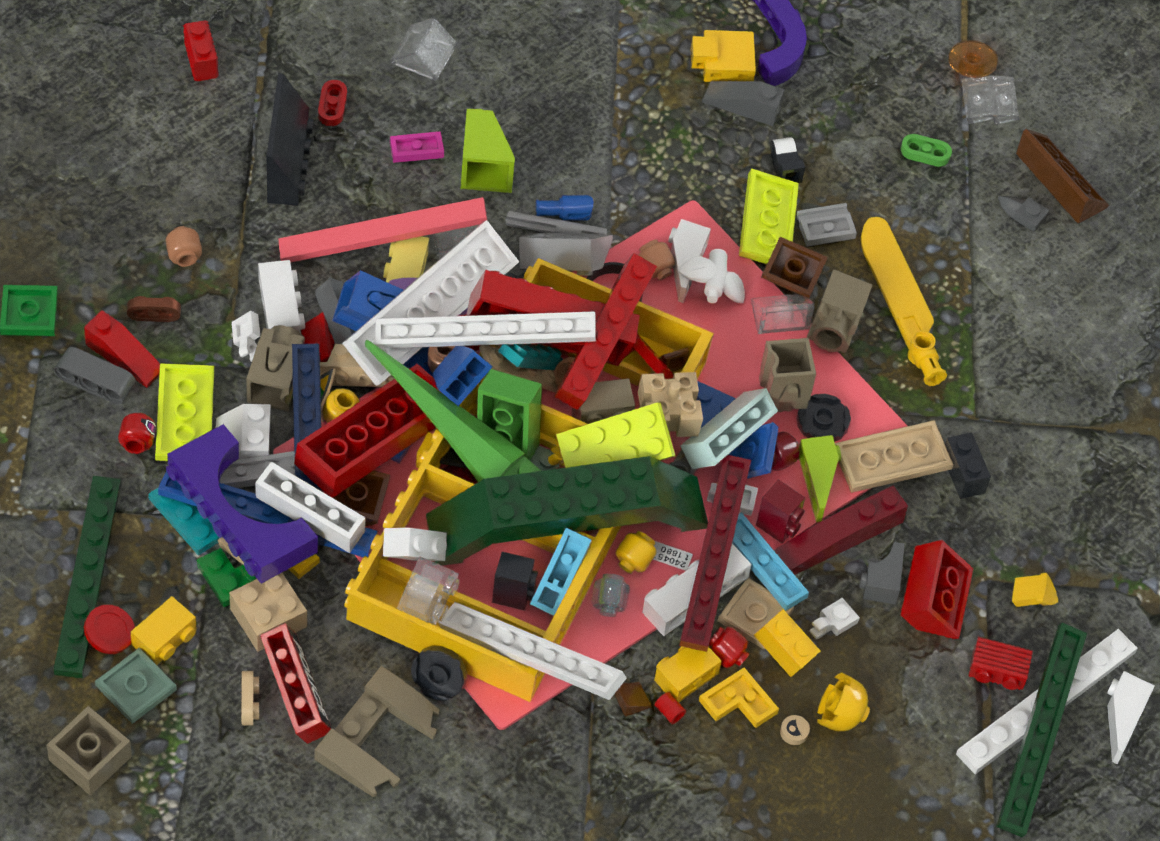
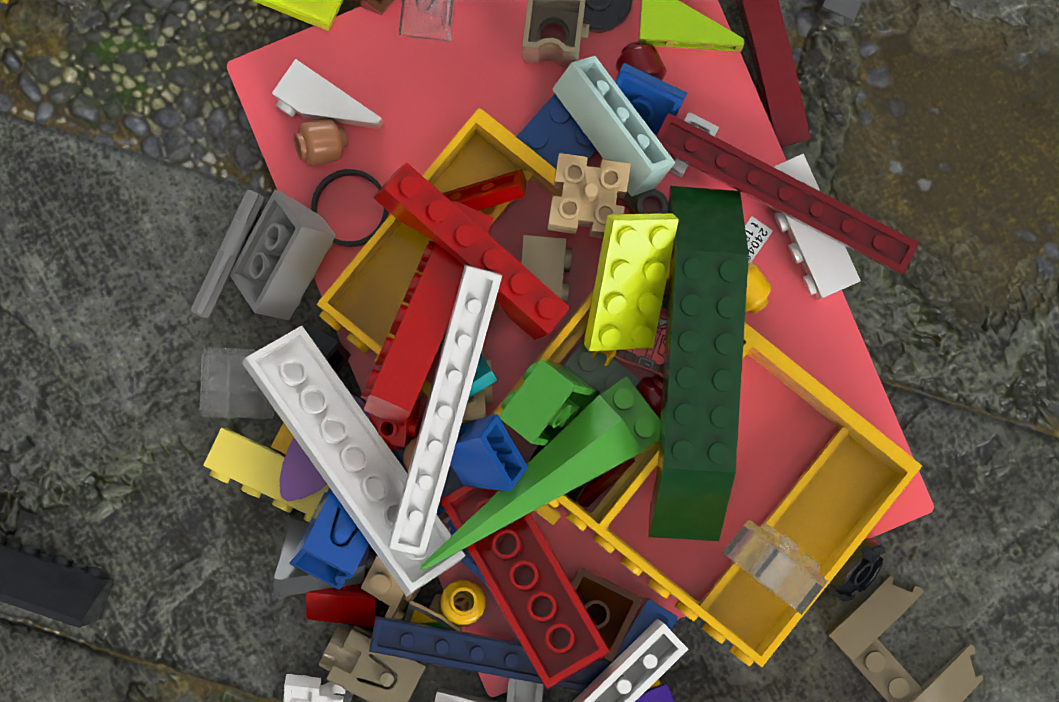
camera: 70 degrees left, 30 degrees up
(279, 296) = (268, 639): white brick -> none
(383, 230) = (198, 484): coral tile -> none
(413, 543) = (706, 567): white brick -> none
(416, 147) = (60, 404): dark pink plate -> none
(486, 154) = (100, 321): lime slope -> none
(514, 581) = (764, 449): black brick -> none
(533, 651) = (902, 461): white plate -> none
(561, 571) = (779, 396): medium azure slope -> none
(567, 207) = (203, 231): blue arm -> none
(610, 594) = (797, 334): clear light blue head -> none
(632, 698) = (925, 342): reddish brown slope -> none
(670, 708) = (951, 302): red hinge -> none
(676, 360) = (477, 163): reddish brown slope -> none
(686, 671) = (920, 278): yellow brick -> none
(715, 275) = (369, 75): white plant -> none
(729, 646) = (892, 207): red head -> none
(739, 692) = (949, 213): yellow plate -> none
(750, 610) = (845, 161): tan tile -> none
(768, 565) = (798, 130): medium azure plate -> none
(781, 512) = (738, 94): dark red brick -> none
(787, 643) = (907, 139): yellow brick -> none
(794, 730) = (1009, 162): tan tile -> none
(835, 617) = (873, 67): white plate -> none
(843, 704) = (1000, 97): yellow cylinder -> none

